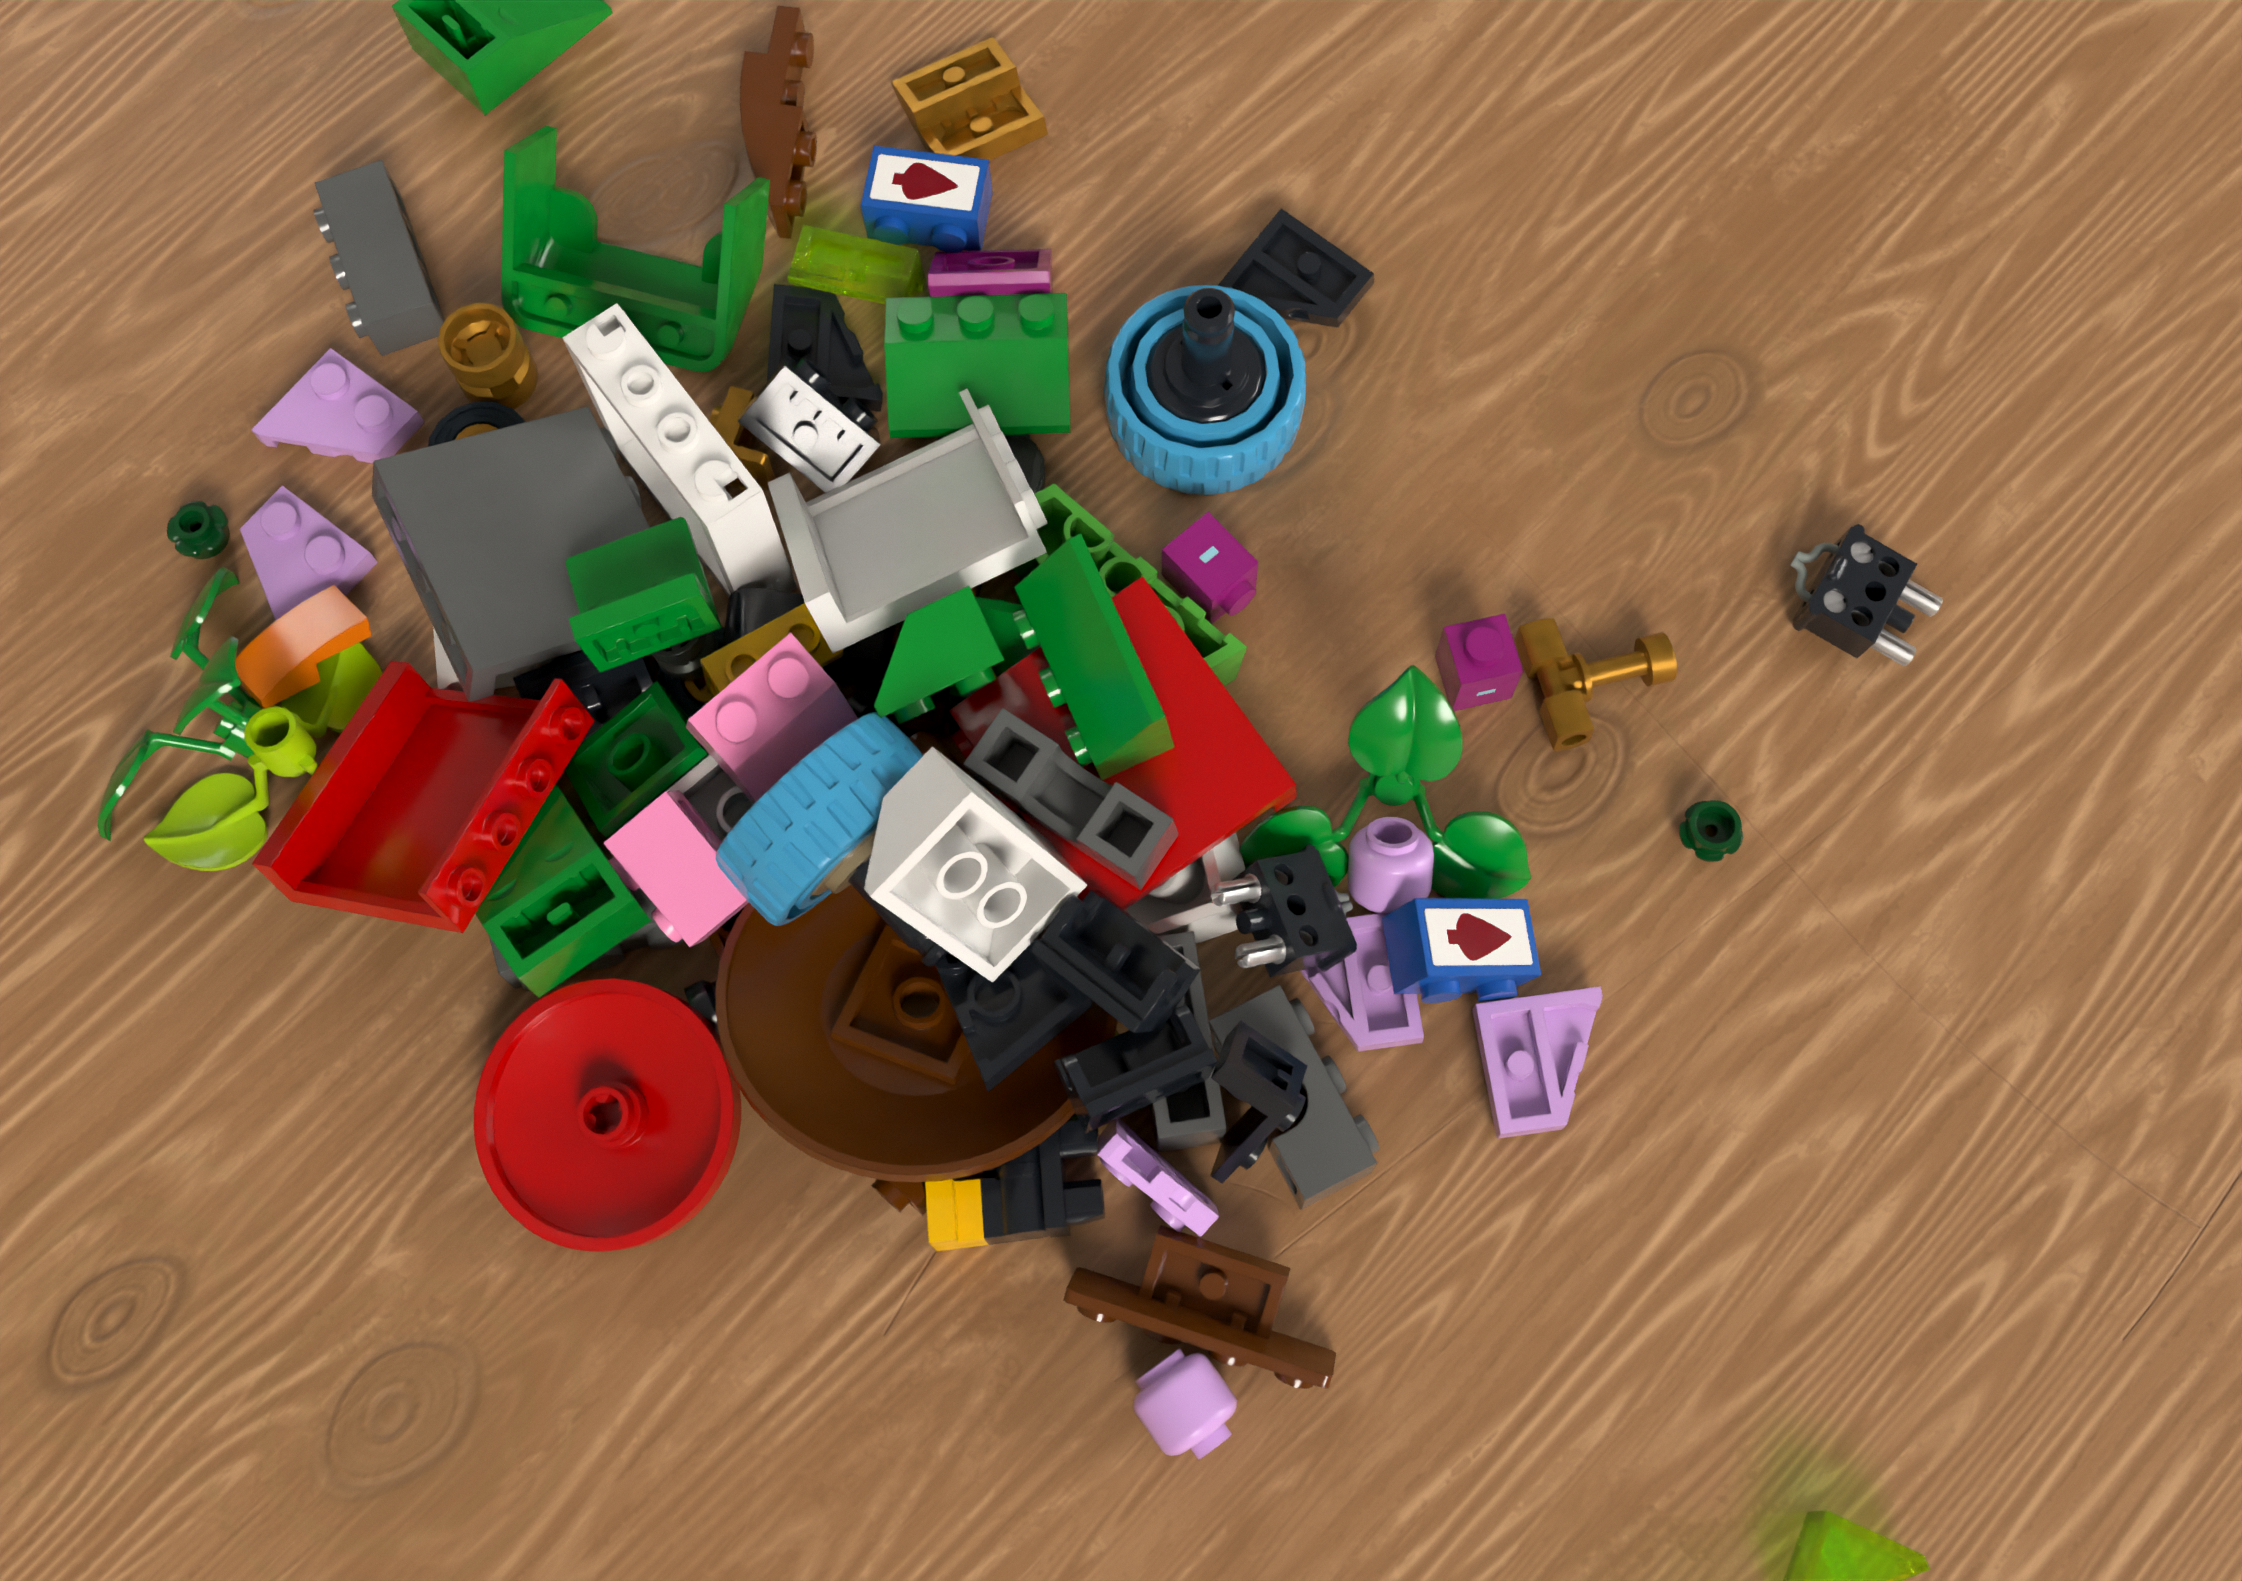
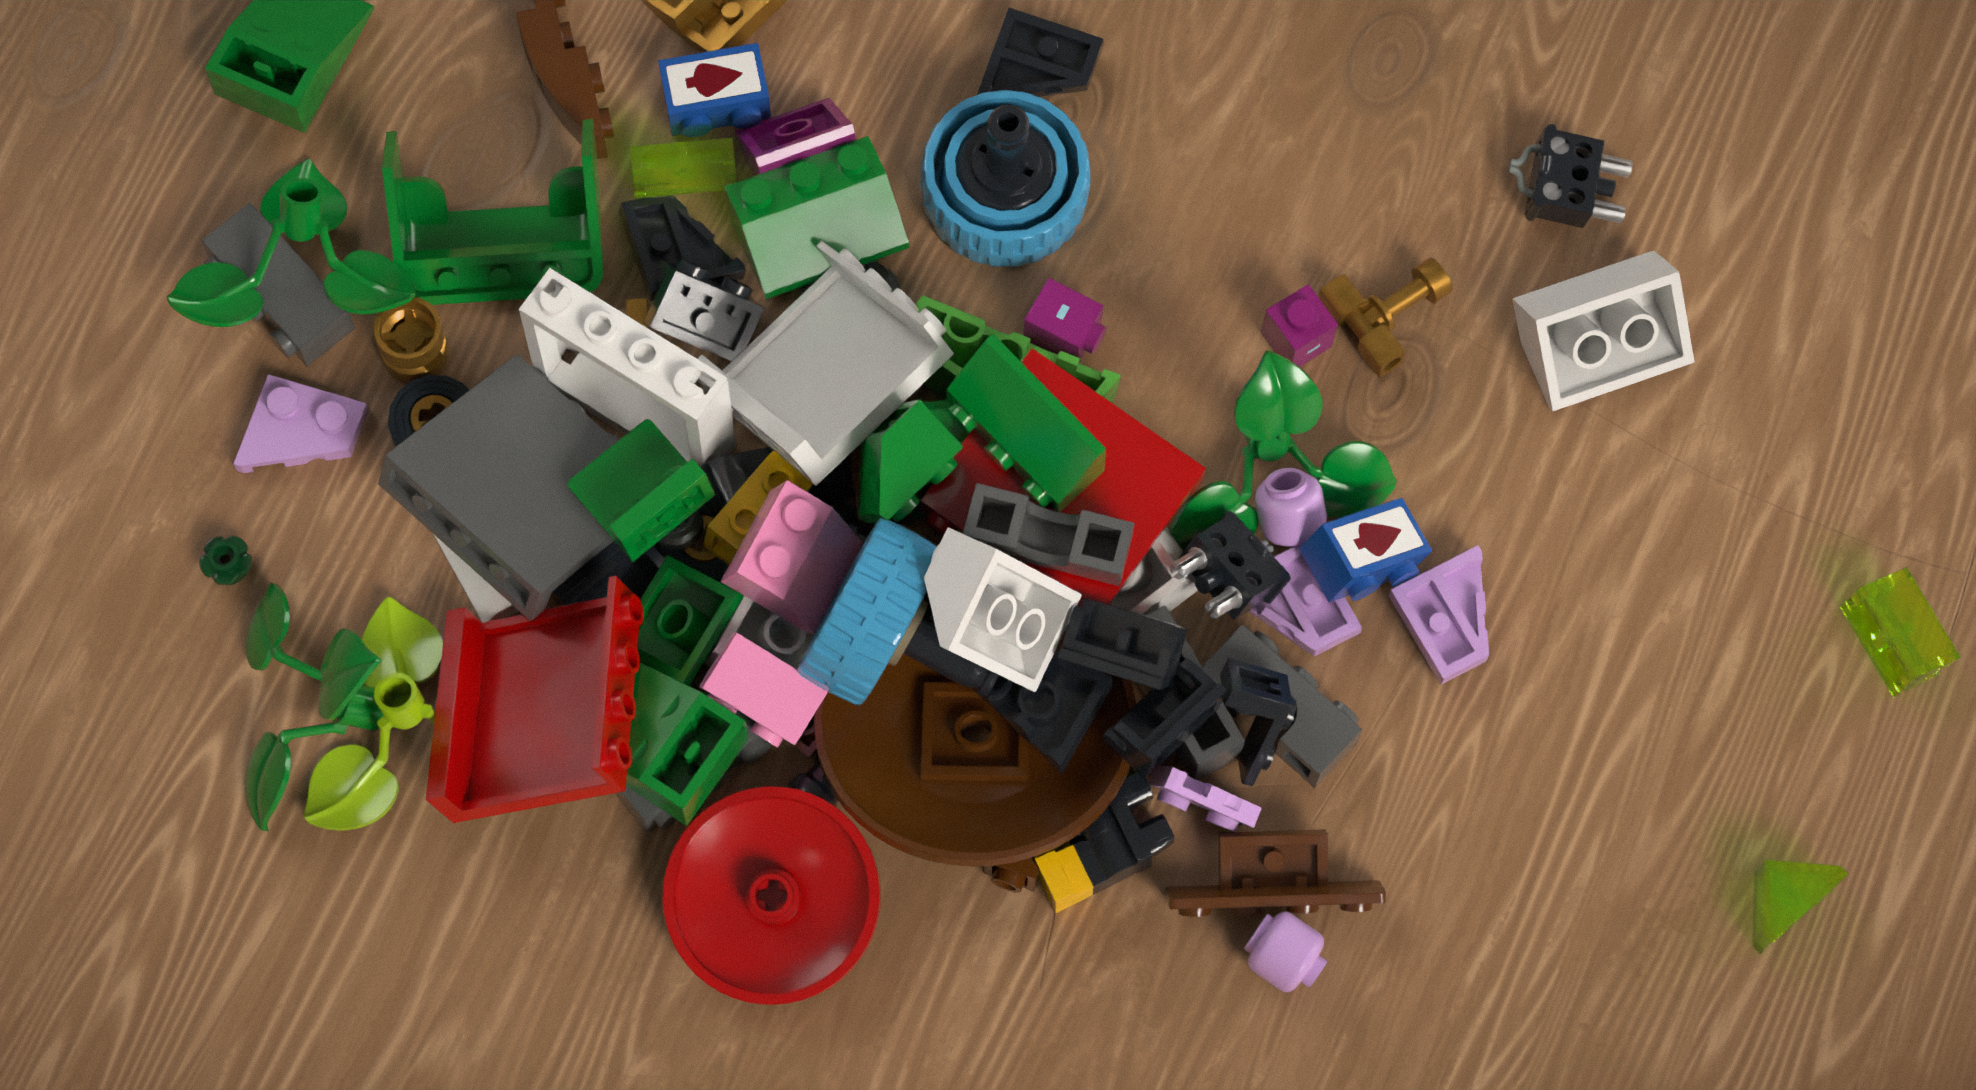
camera: 25 degrees left, 0 degrees up
(286, 652) = (368, 610): orange slope -> none
(300, 552) = (323, 557): lavender wing -> none
(453, 183) = (301, 206): none -> green plant
(1720, 817) = (1525, 388): dark green plate -> none
(1845, 782) = (1605, 329): none -> white slope
(2095, 1274) = (1899, 631): none -> clear neon green hinge

